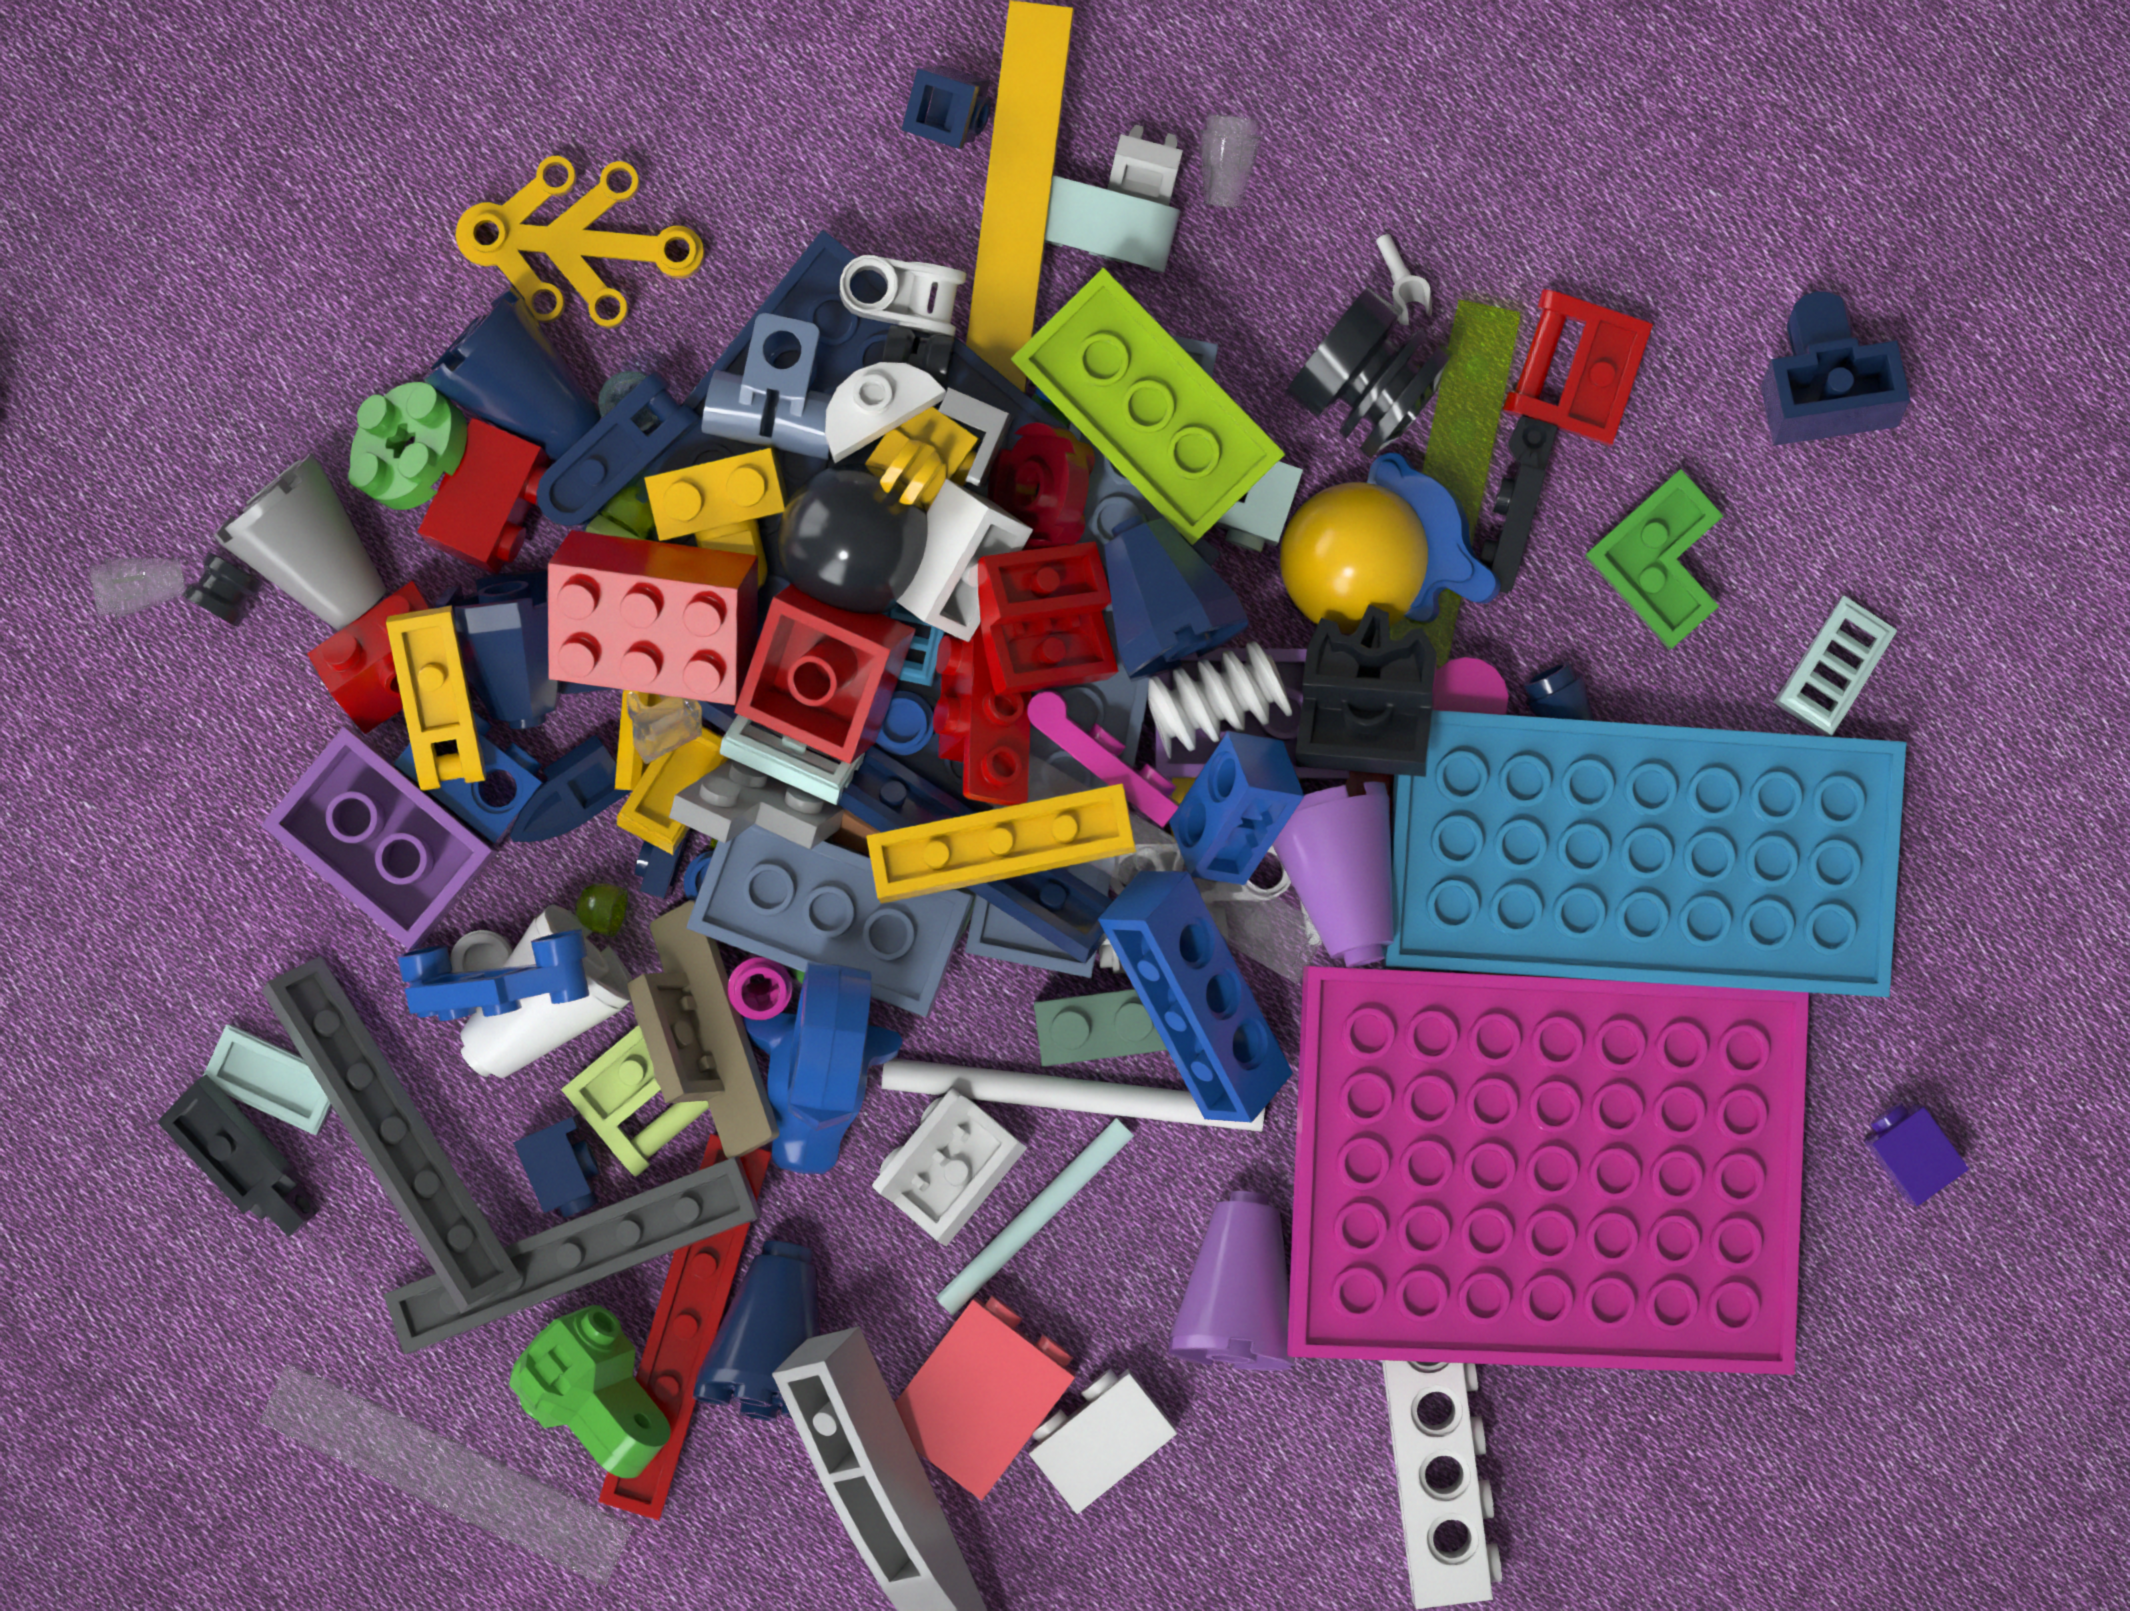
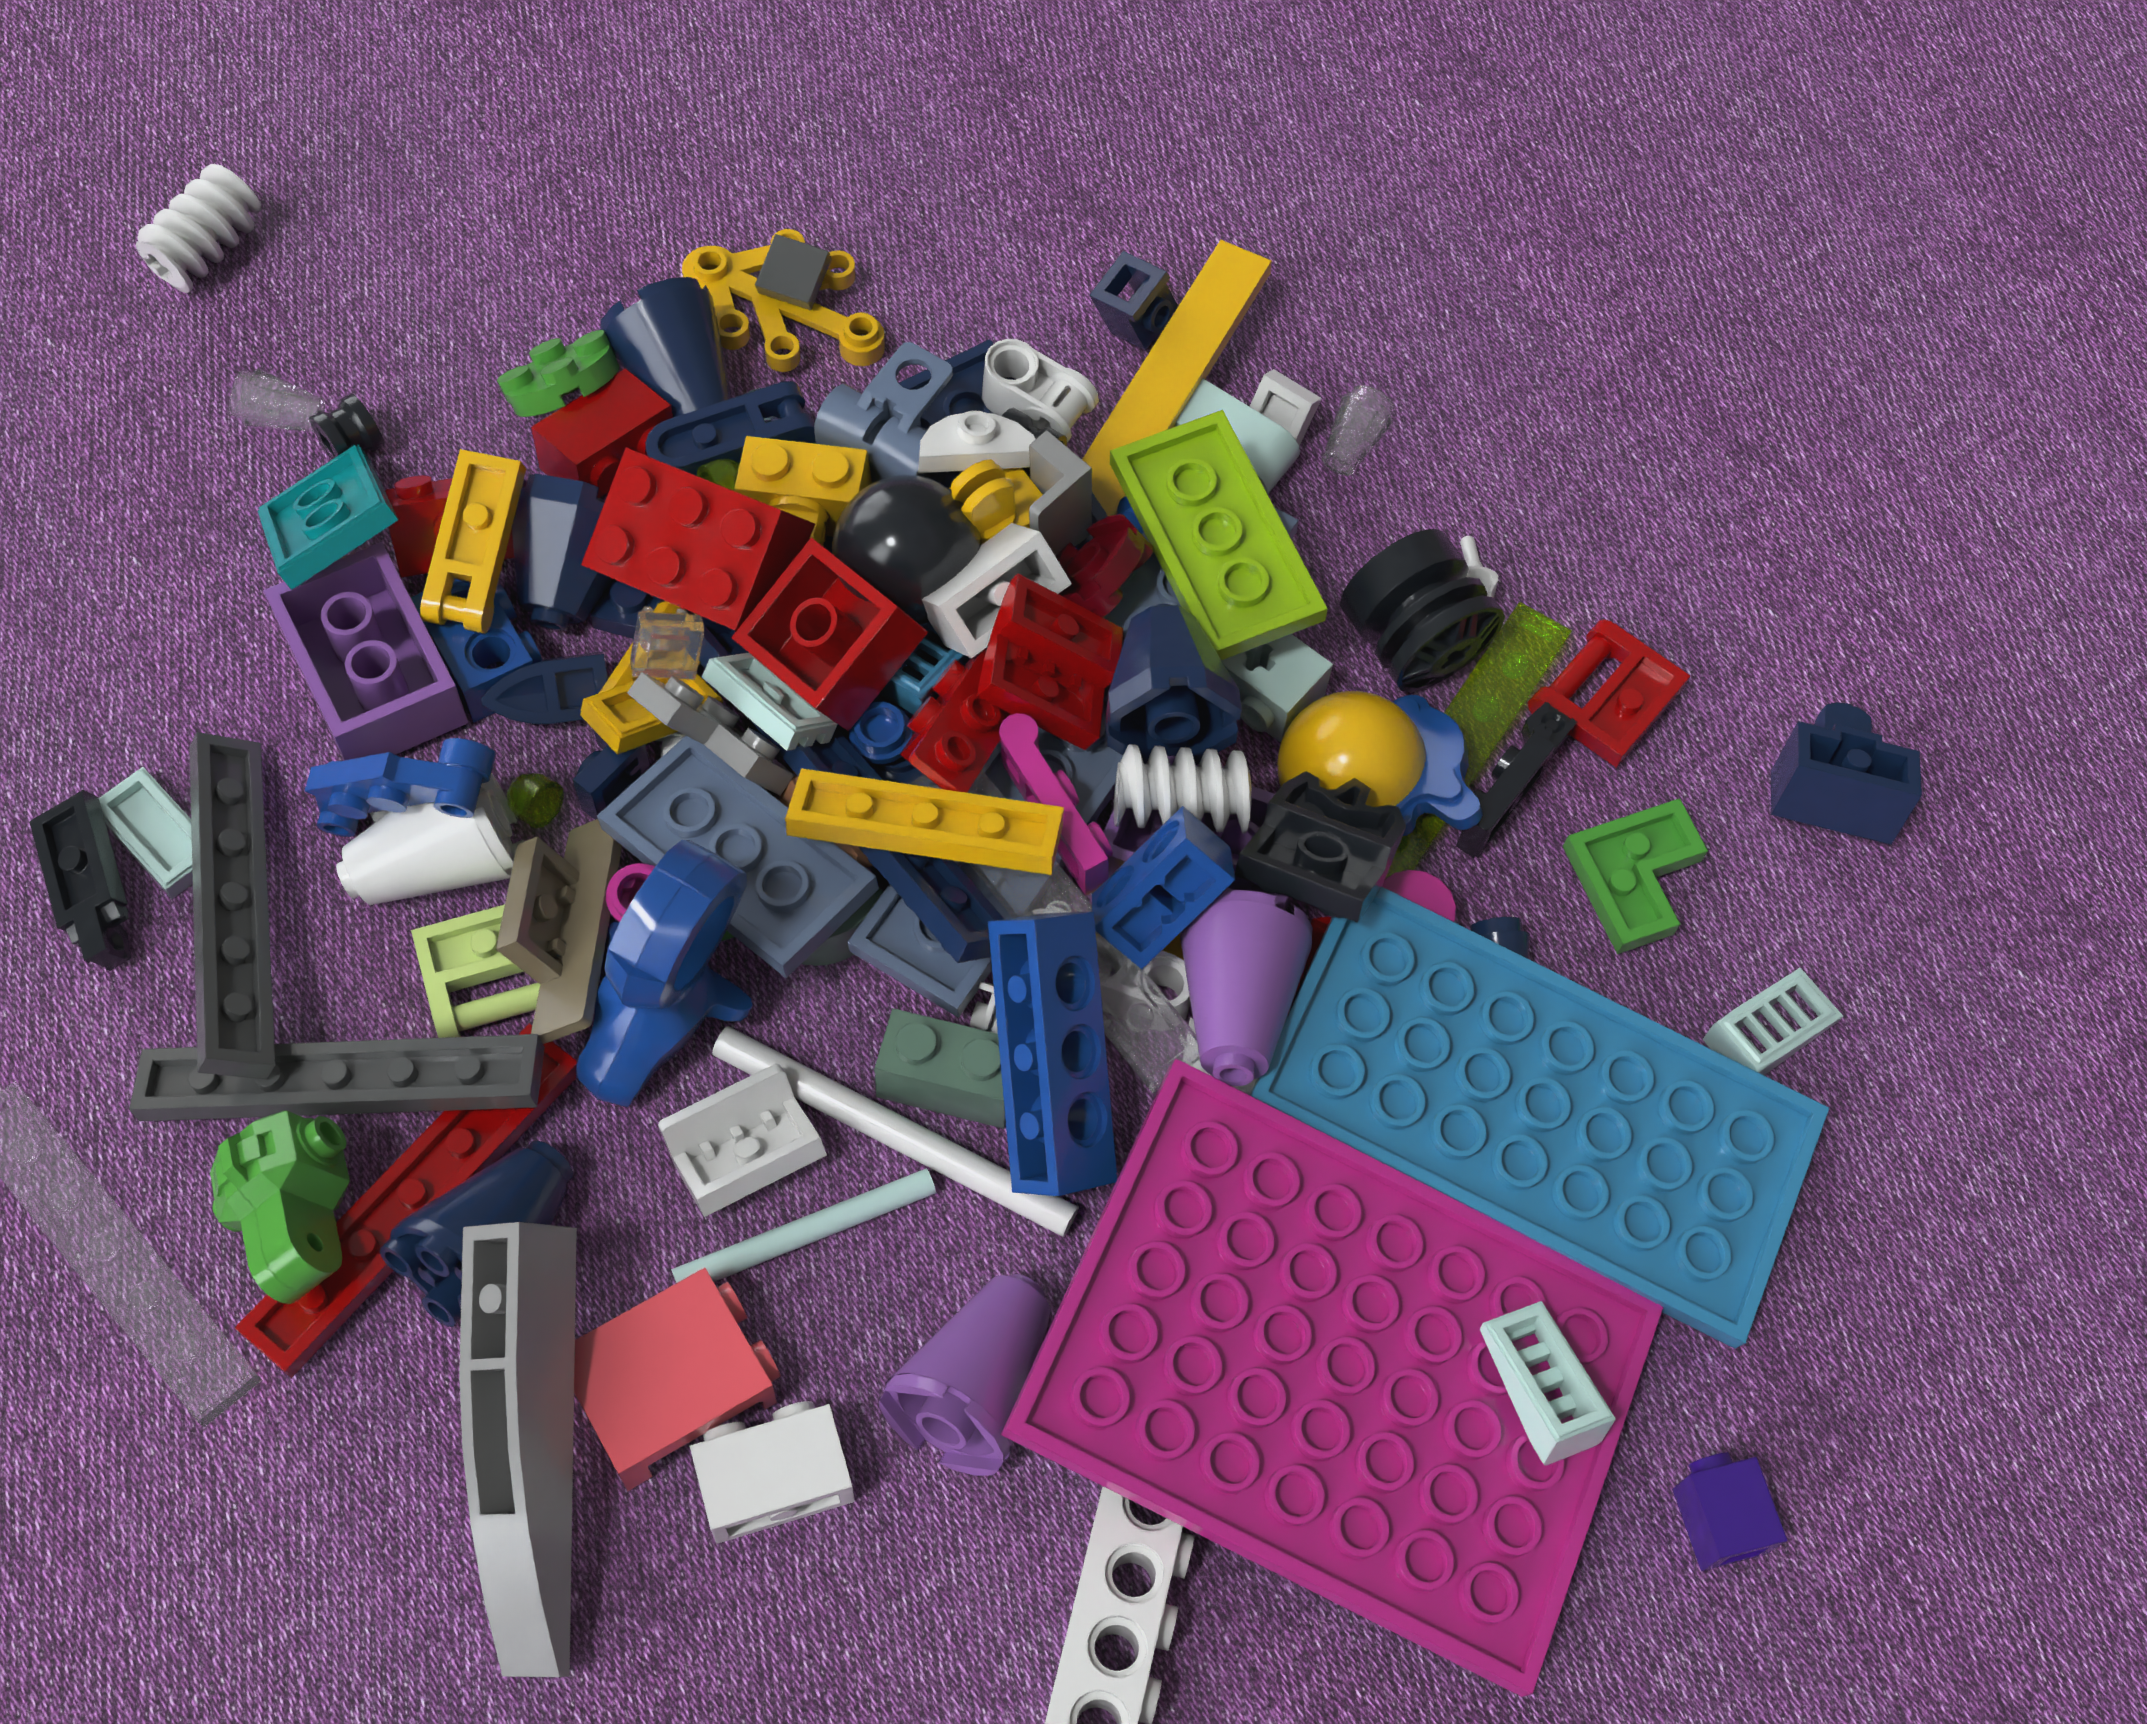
camera: 15 degrees right, 25 degrees down
(271, 714) = (325, 516): none -> teal tile
(306, 544) = (428, 399): light grey cone -> none
(560, 1167) = (372, 993): dark blue brick -> none
(581, 216) = (793, 272): none -> dark grey tile
(1707, 1128) = (1538, 1416): none -> light aqua slope

